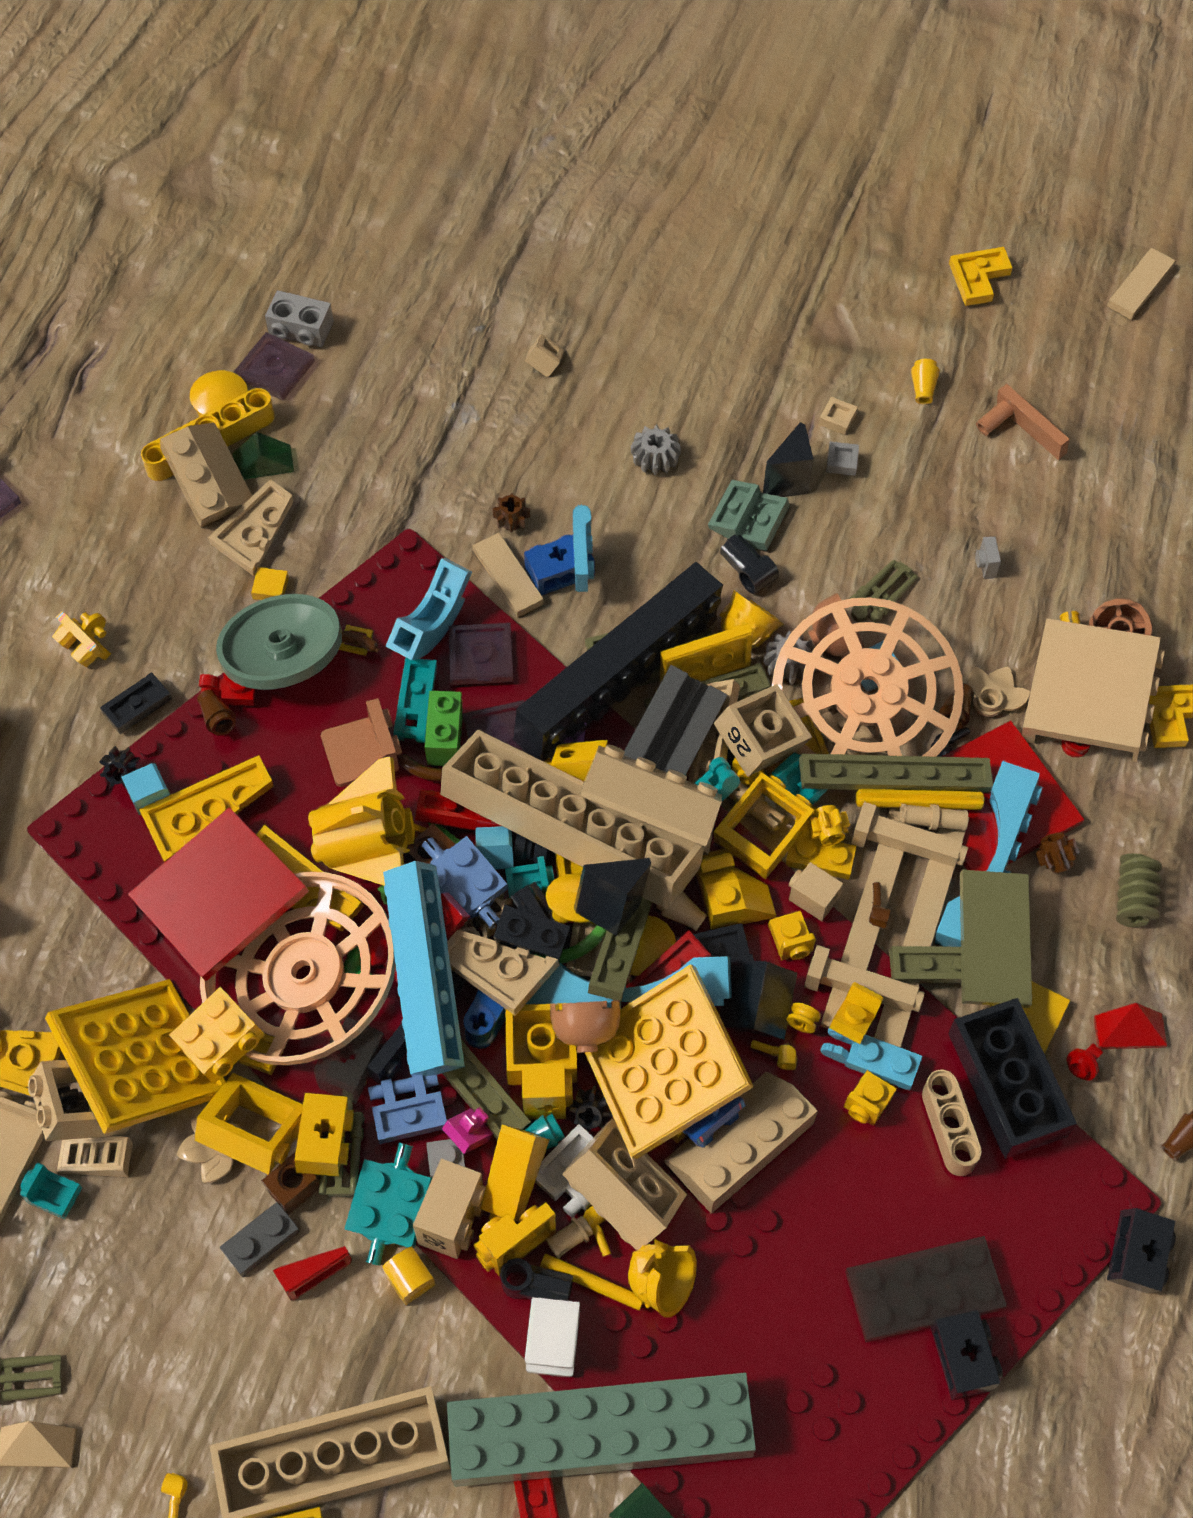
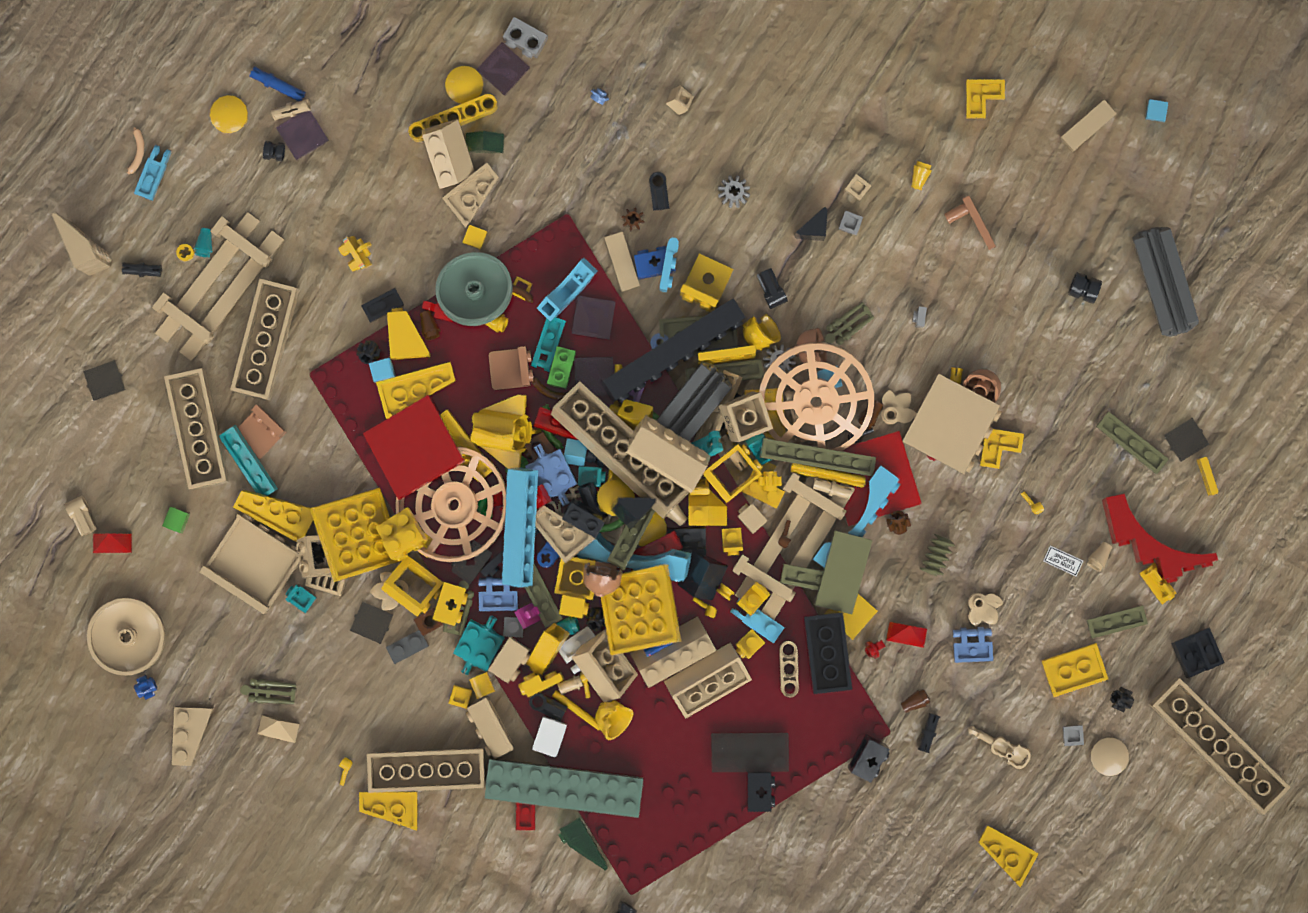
camera: 15 degrees right, 25 degrees up
(179, 736) = (404, 337): none -> yellow slope
(188, 1212) = (371, 622): none -> clear smoke piece
(307, 1273) = (425, 673): red slope -> none
(322, 685) = (498, 324): none -> yellow cone
(372, 1309) = (460, 696): none -> yellow tile
(424, 369) = (599, 96): none -> medium blue plate
(438, 1347) = (490, 728): none -> tan slope
(542, 470) = (659, 193): none -> black piece
(641, 572) = (706, 294): none -> yellow bracket
(749, 514) = (781, 251): sand green slope -> none
(815, 1174) = (707, 680): none -> tan slope

